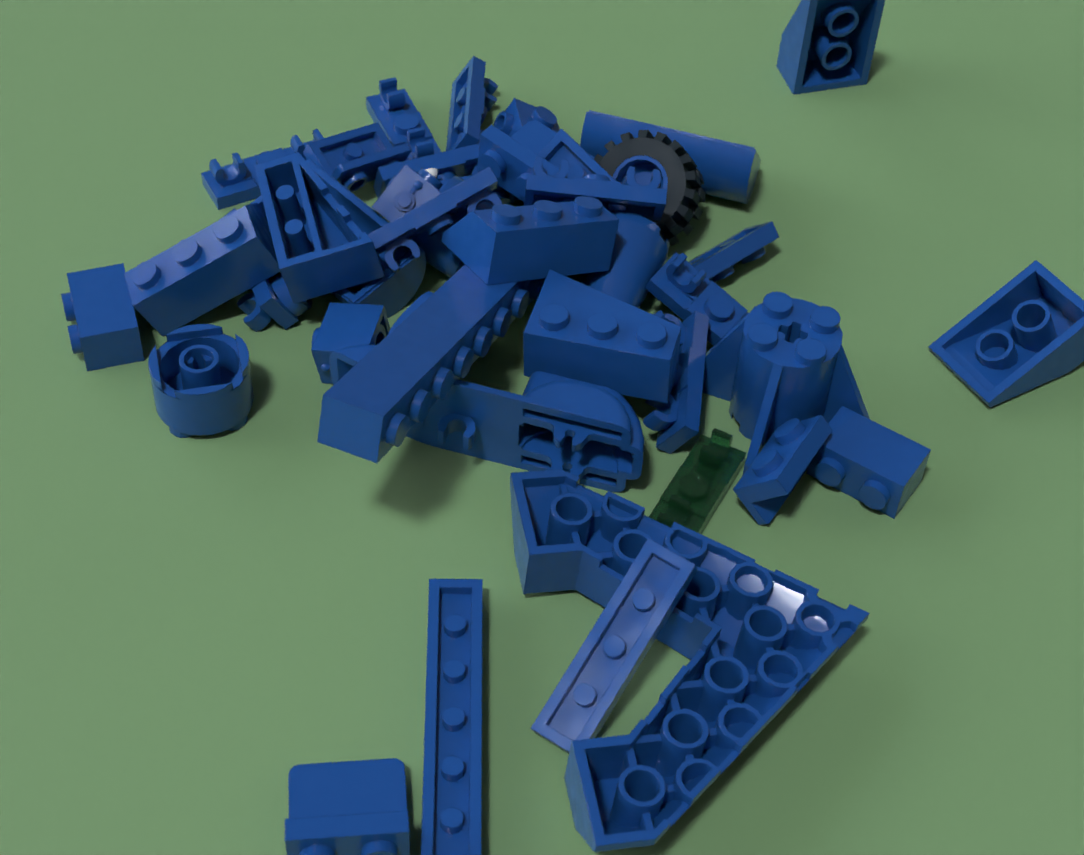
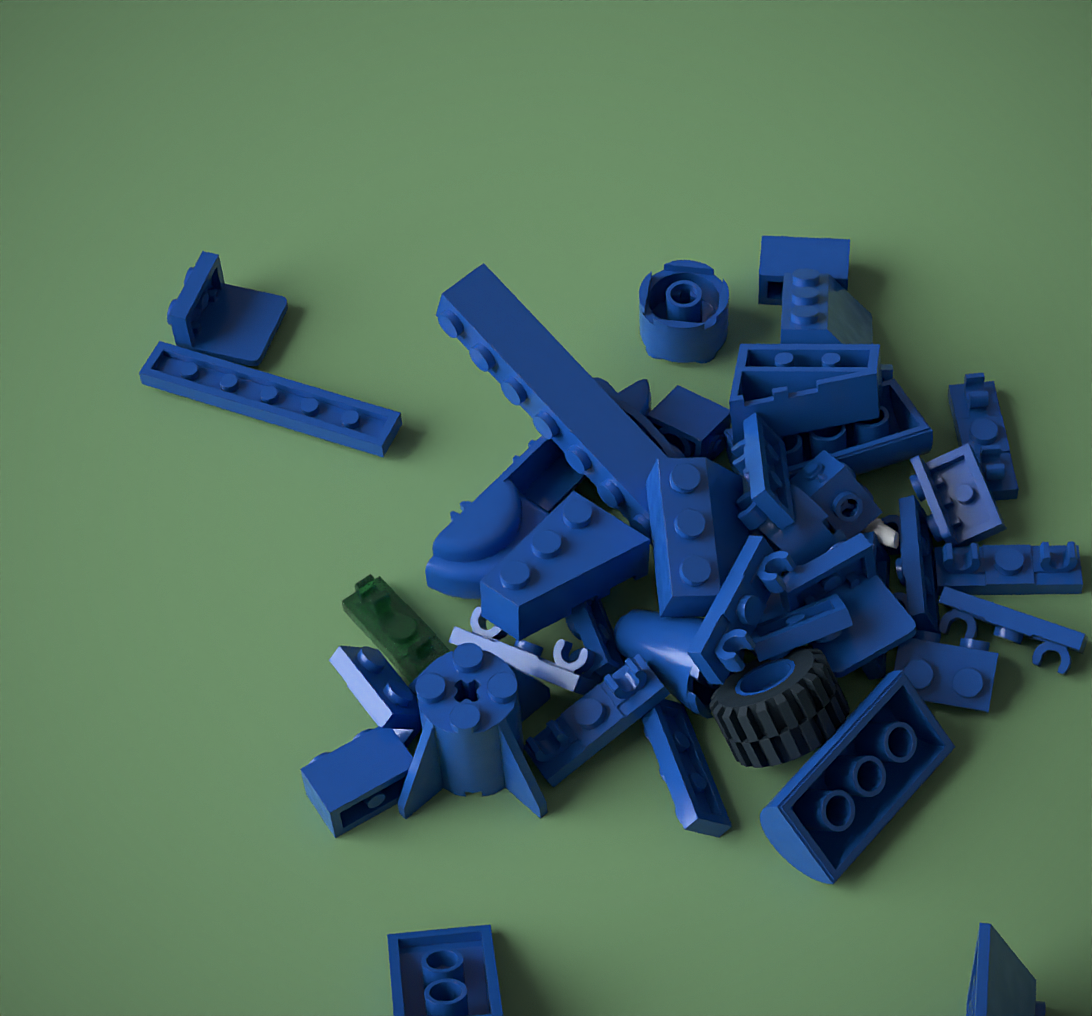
camera: 120 degrees right, 5 degrees up
(615, 646) = (254, 490): blue plate -> none
(742, 626) = (222, 598): blue wedge -> none

